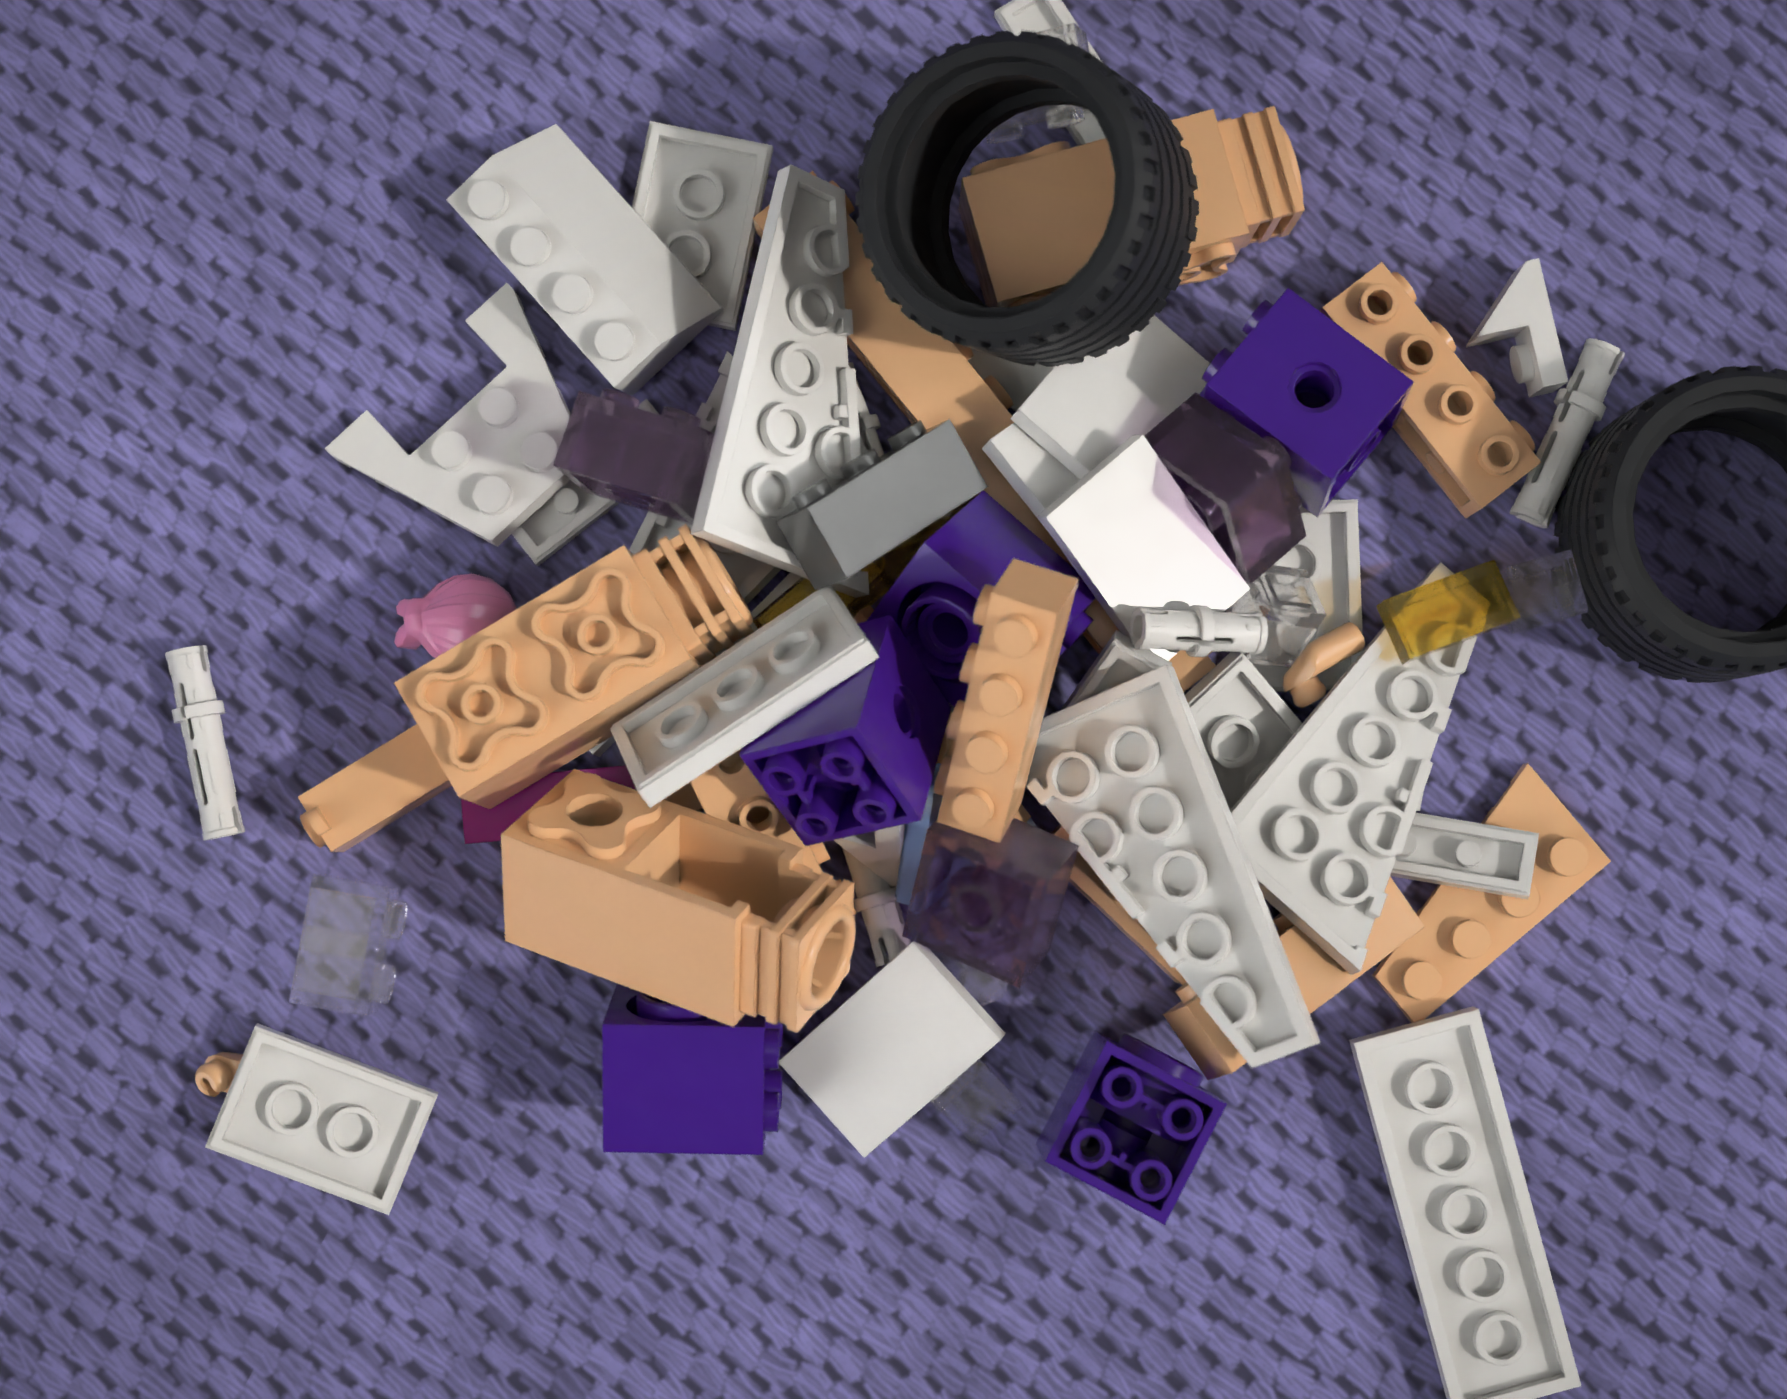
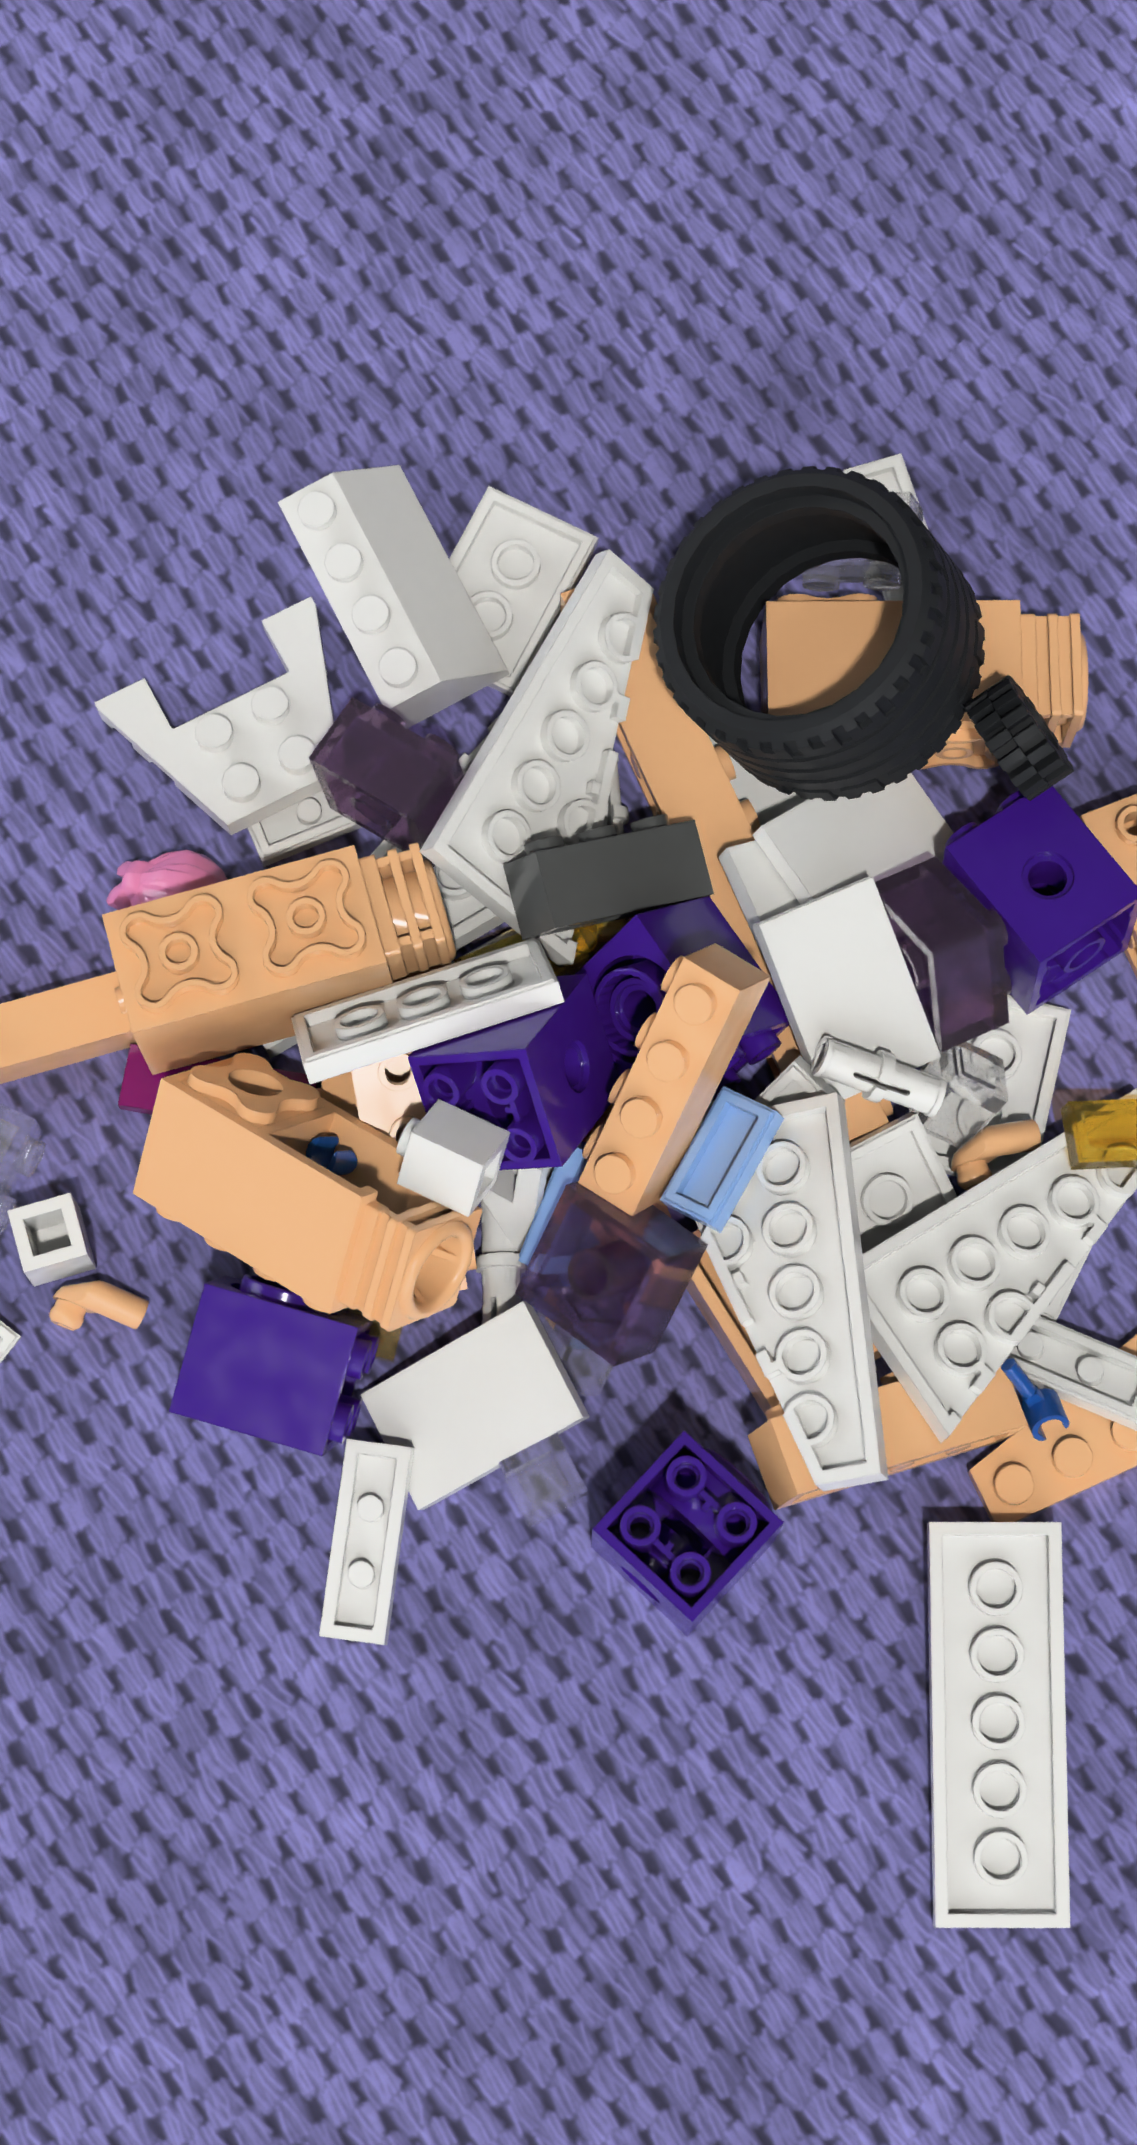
camera: 15 degrees right, 10 degrees down
(439, 999) = (51, 1239): none -> white brick
(503, 1038) = (96, 1297): none -> light nougat arm
(684, 868) = (322, 1152): none -> blue hand
(809, 843) = (451, 1157): none -> white brick
(824, 1204) = (366, 1542): none -> white plate
(1069, 758) = (721, 1159): none -> light blue tile
(1253, 257) = (1019, 738): none -> black tyre
(1428, 901) = (1037, 1404): none -> blue hand

